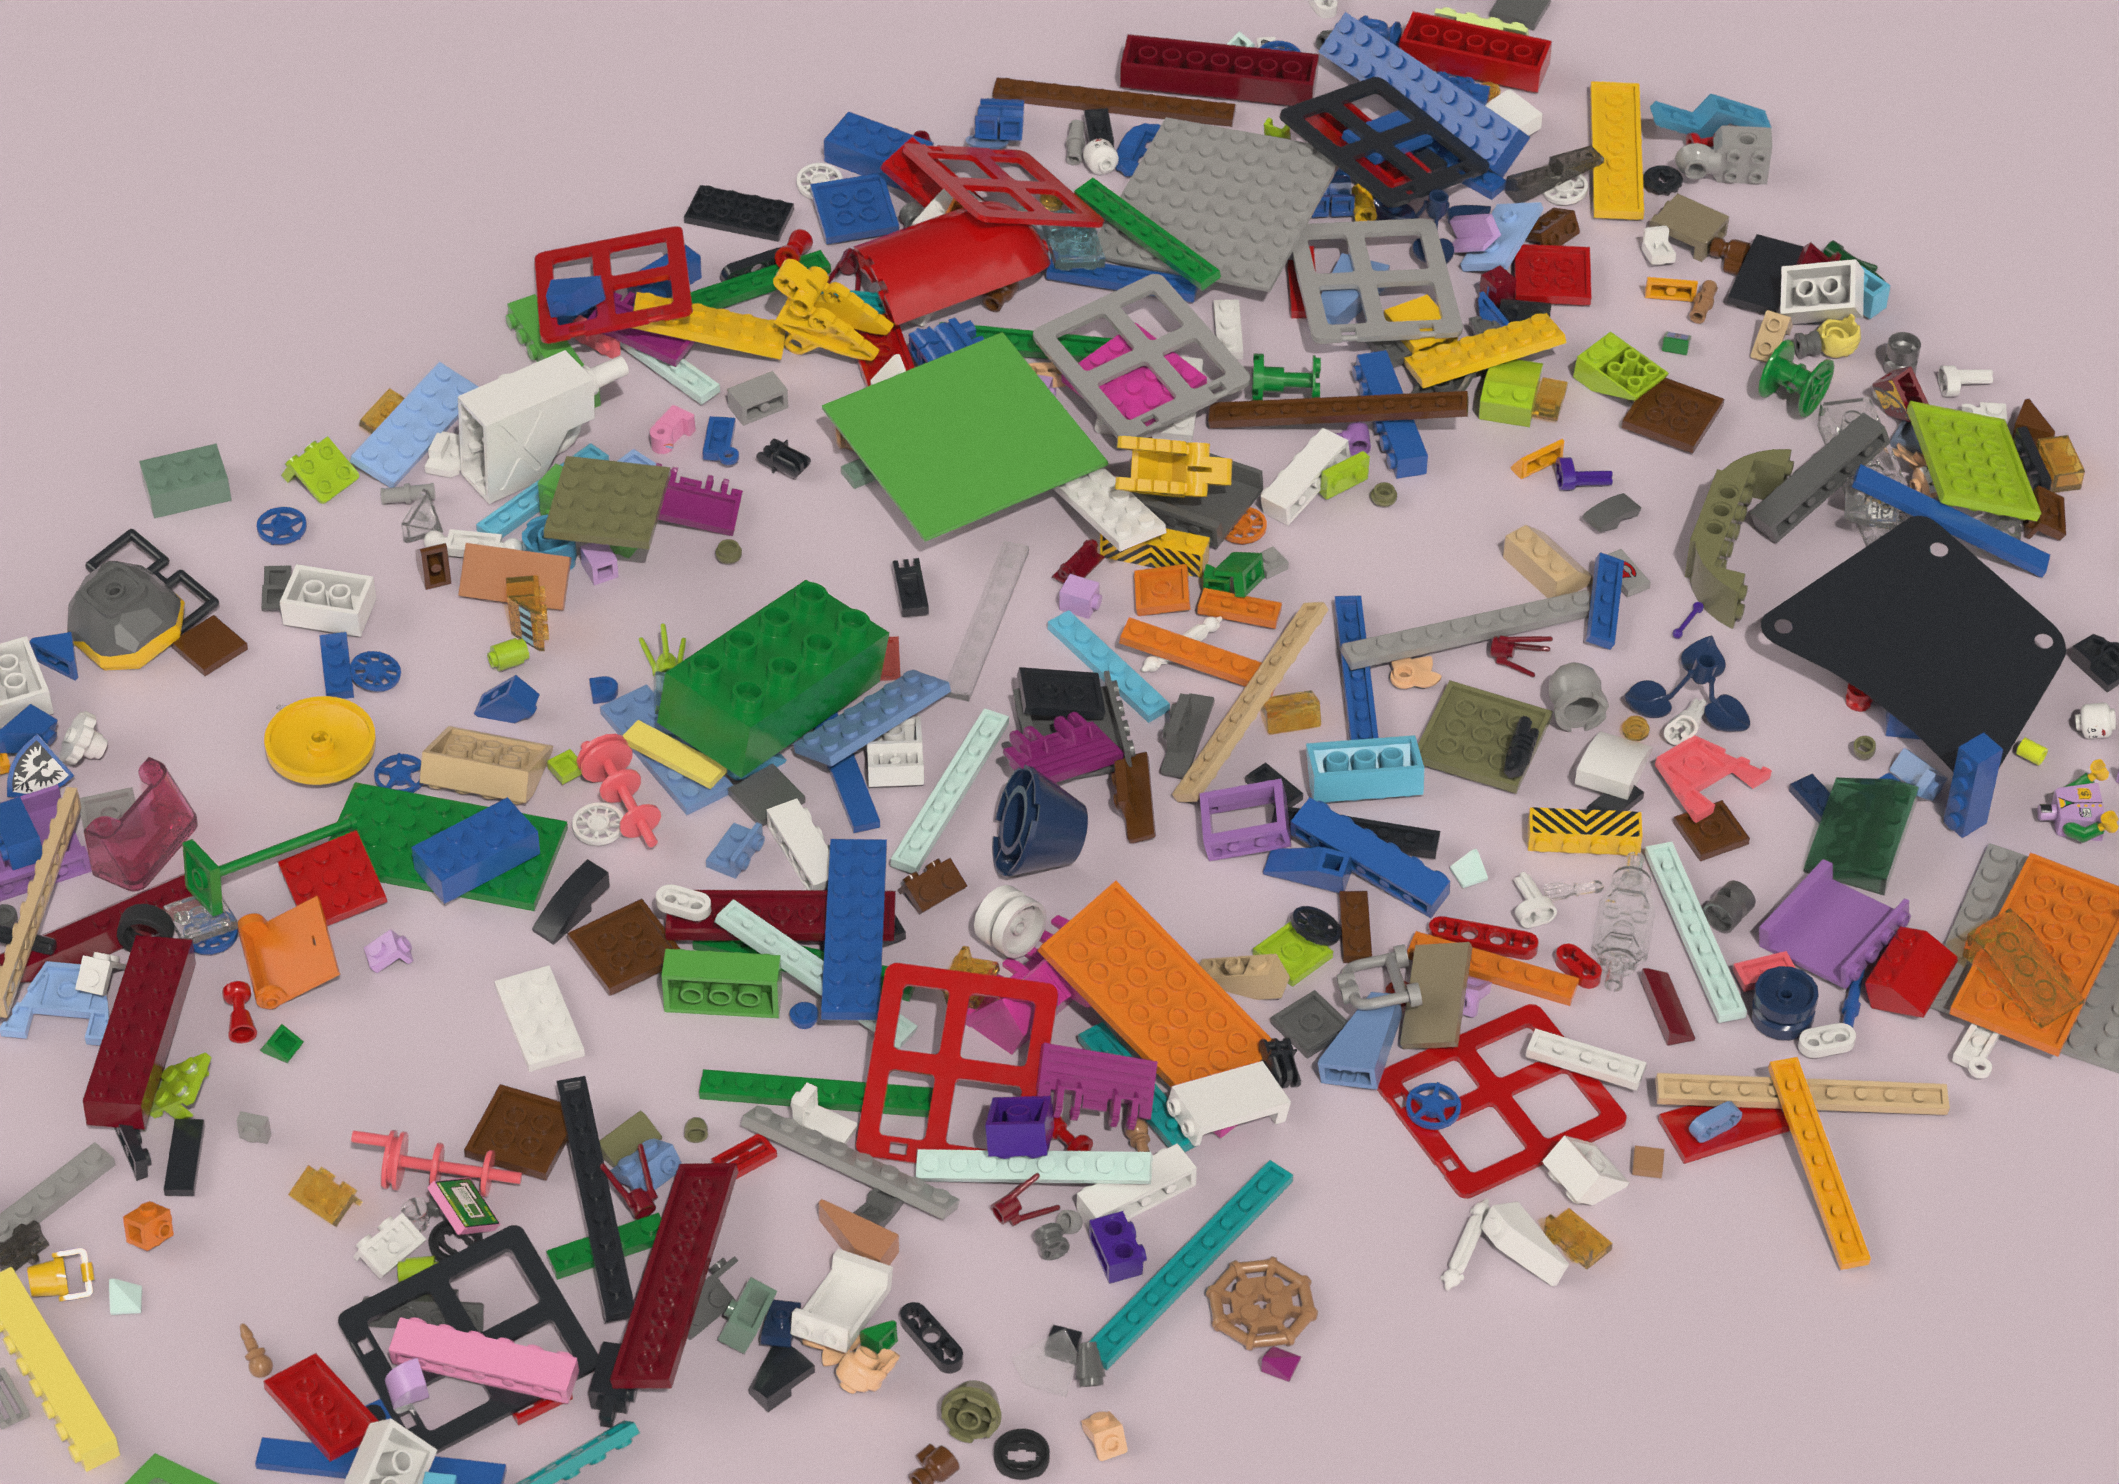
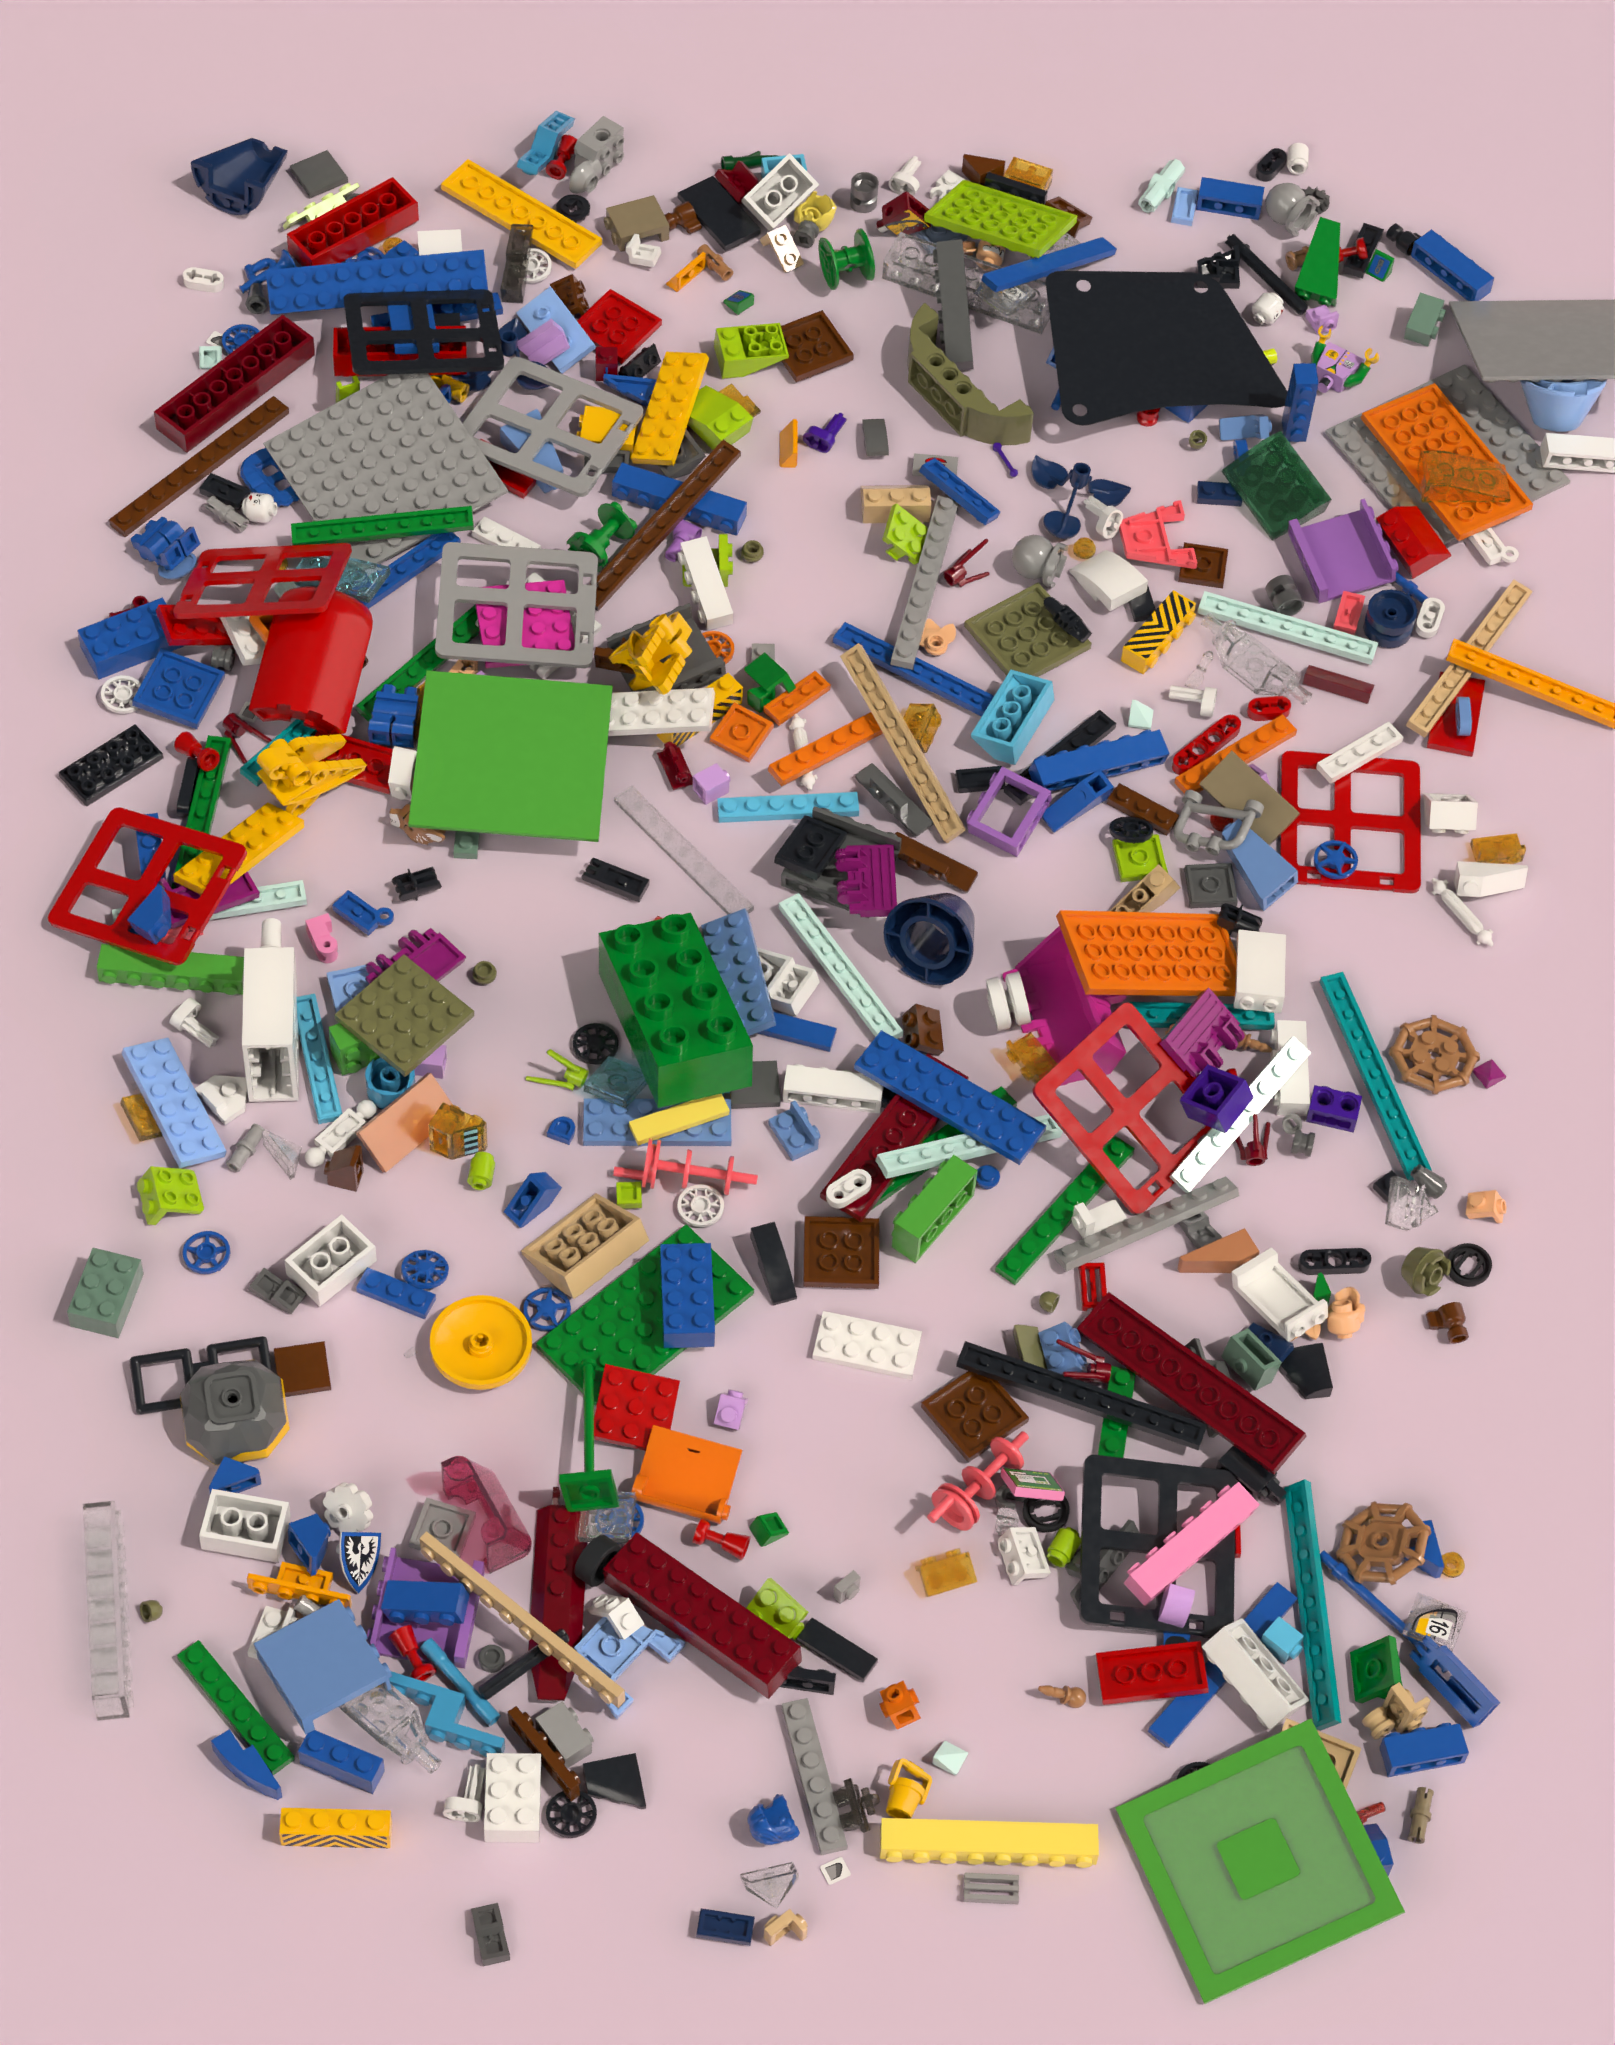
camera: 60 degrees left, 10 degrees up
(757, 398) = (336, 864): light grey brick -> none
(1480, 325) = (641, 395): dark grey tile -> none
(1508, 582) = (905, 534): none -> lime piece
(1648, 1162) = (1460, 773): medium nougat tile -> none

